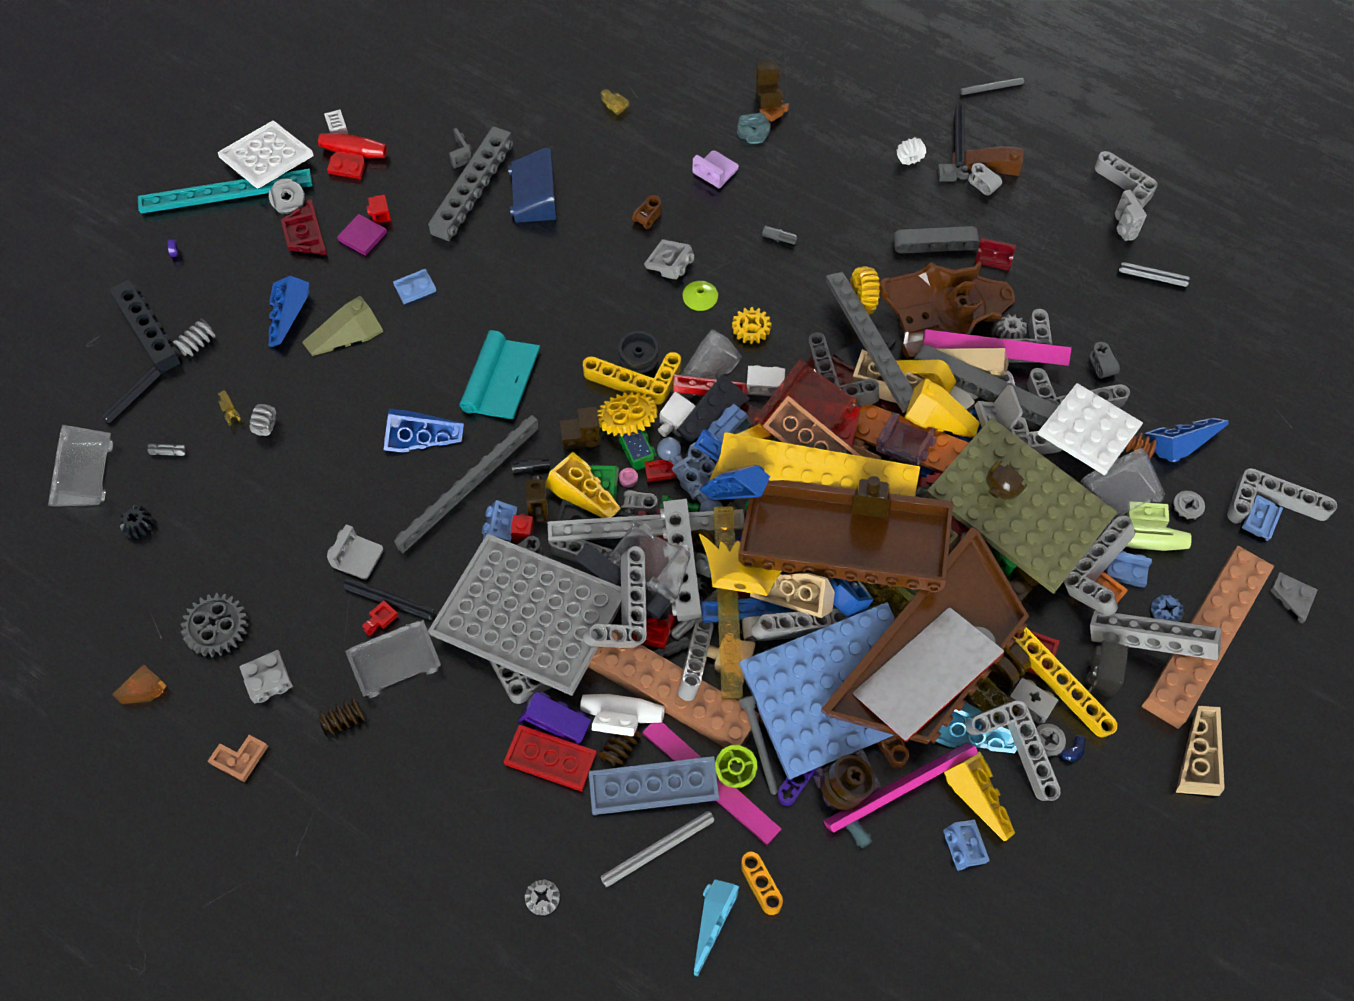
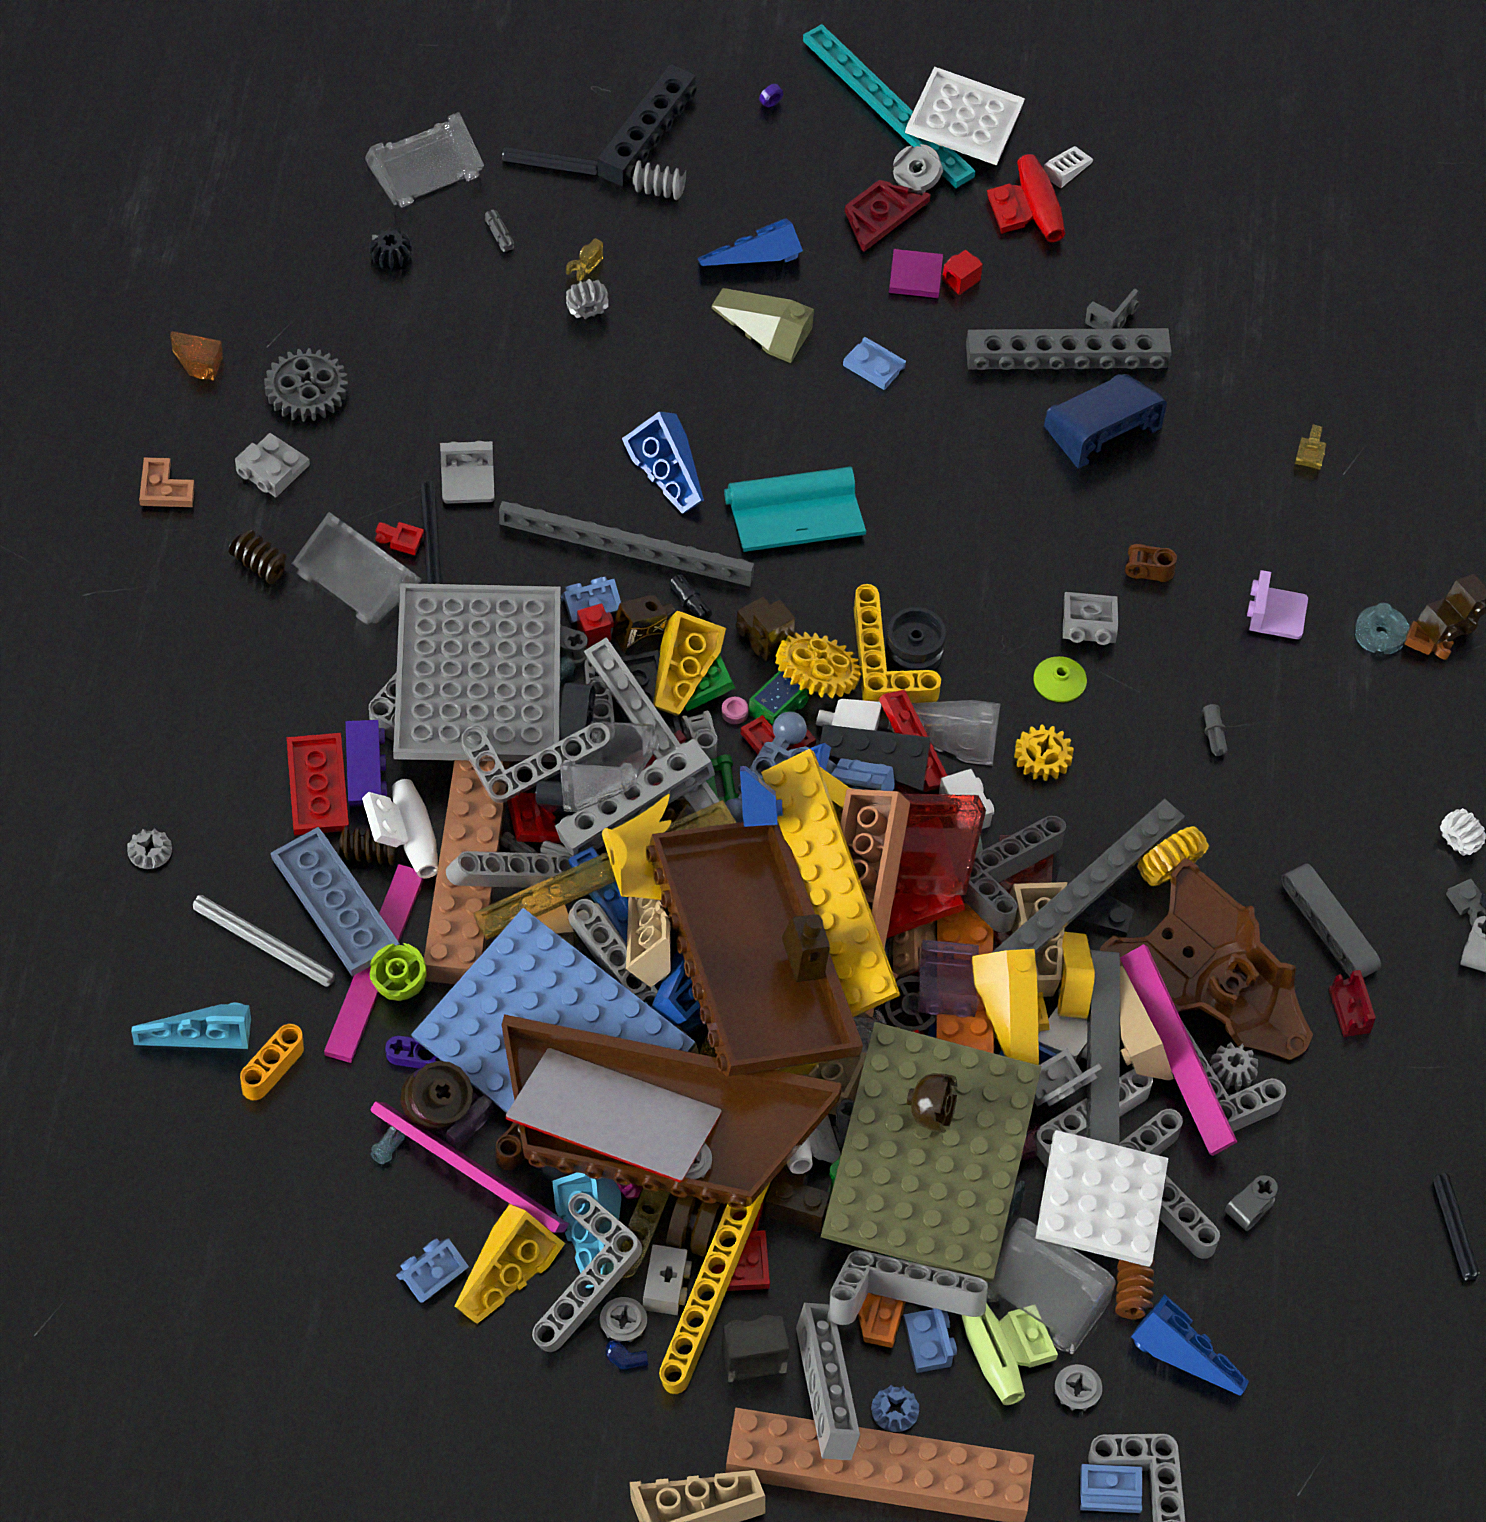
camera: 60 degrees right, 5 degrees down
(748, 705) = (477, 947): dark grey piece -> none

